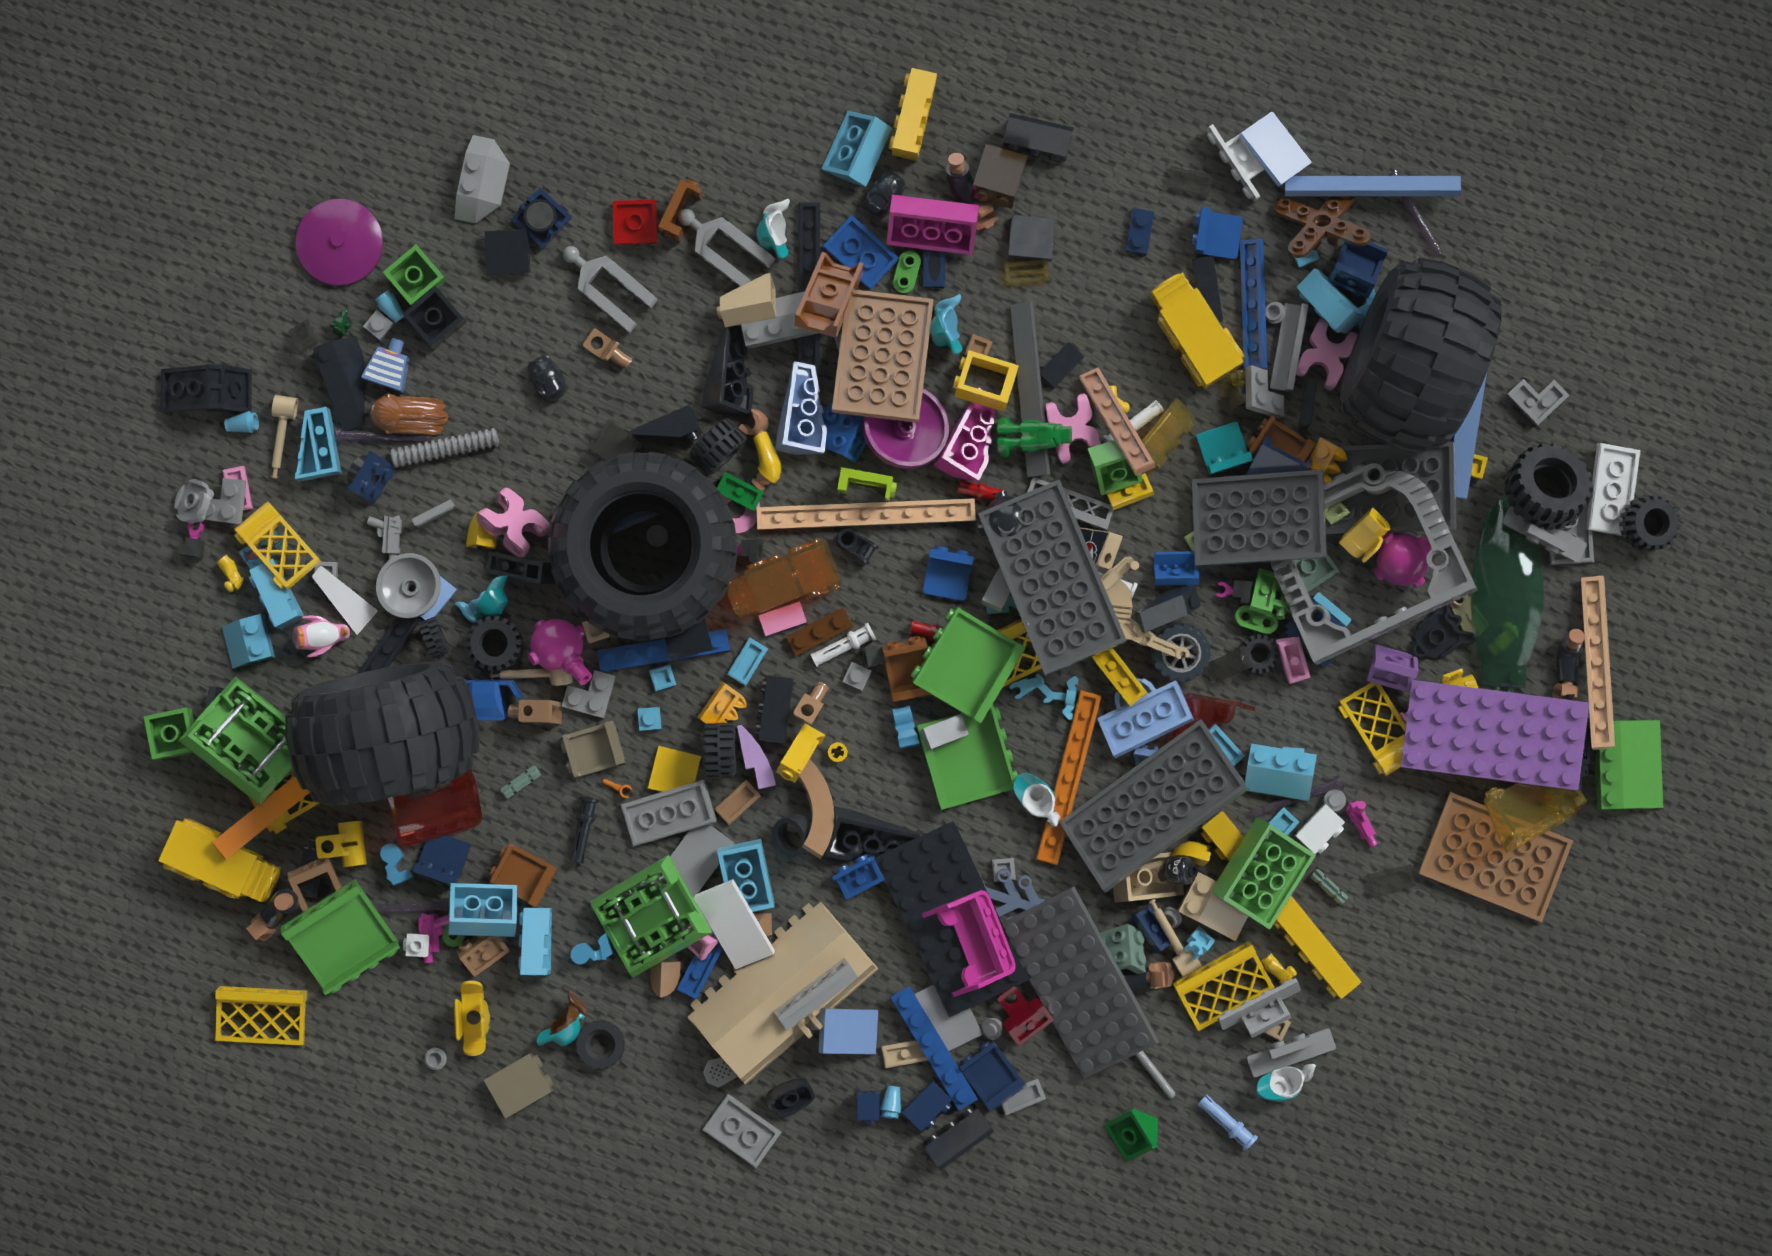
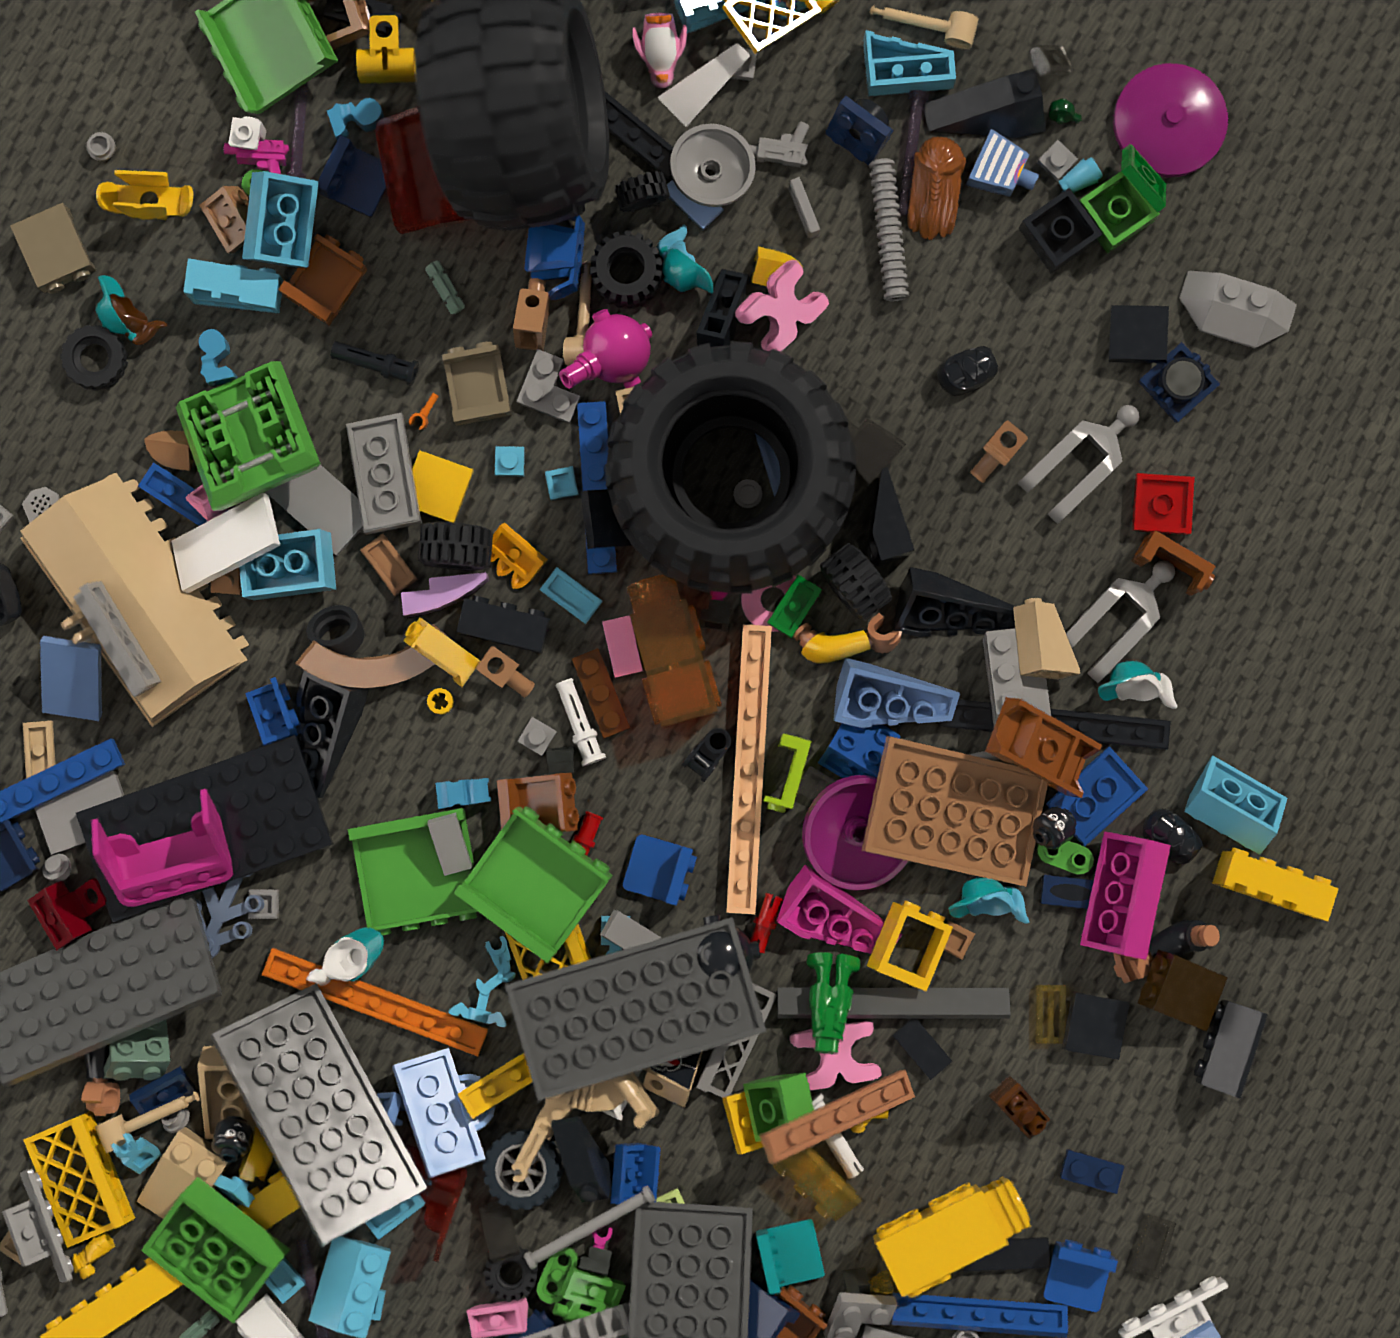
camera: 90 degrees right, 0 degrees up
(389, 258) = (1143, 177): none -> green tile
(887, 281) = (1054, 827): none -> black head
(1097, 288) = (1019, 1107): none -> reddish brown slope
(1217, 864) = (235, 1190): none -> medium azure plate
(1218, 597) = (589, 1227): none -> light grey bar

